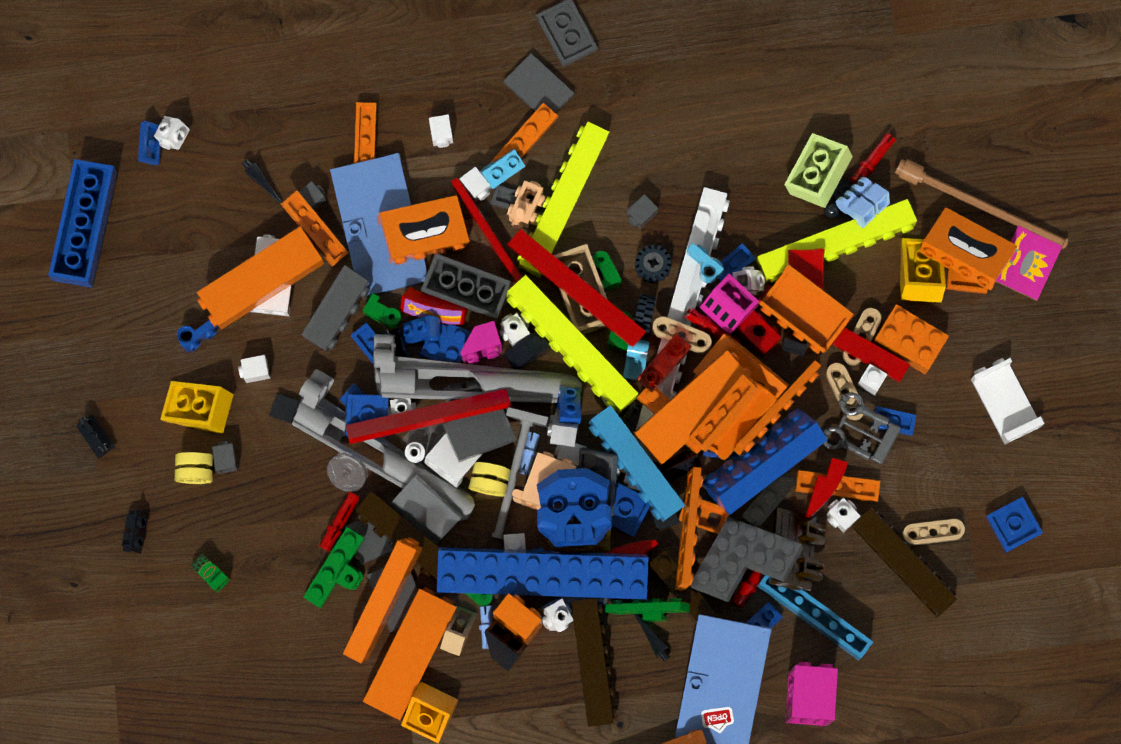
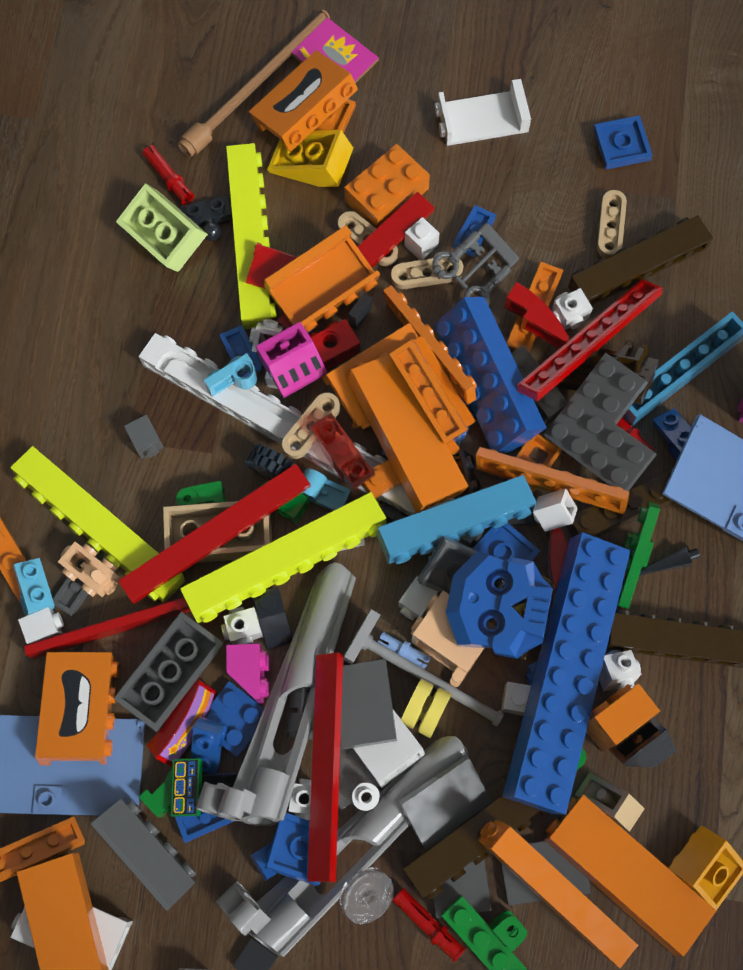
camera: 75 degrees left, 5 degrees down
(388, 323) = (186, 787): none -> tile
(486, 620) = (609, 763): light blue pin -> none
(562, 433) = (386, 595): brick -> none
(569, 405) = (360, 581): blue plate -> none
(652, 271) = (211, 450): black wheel -> none
(665, 537) = (555, 510): none -> white brick
(705, 323) = (304, 397): red pin -> none
(817, 534) = (589, 340): none -> red tile
(864, 201) = (213, 189): light blue legs -> none

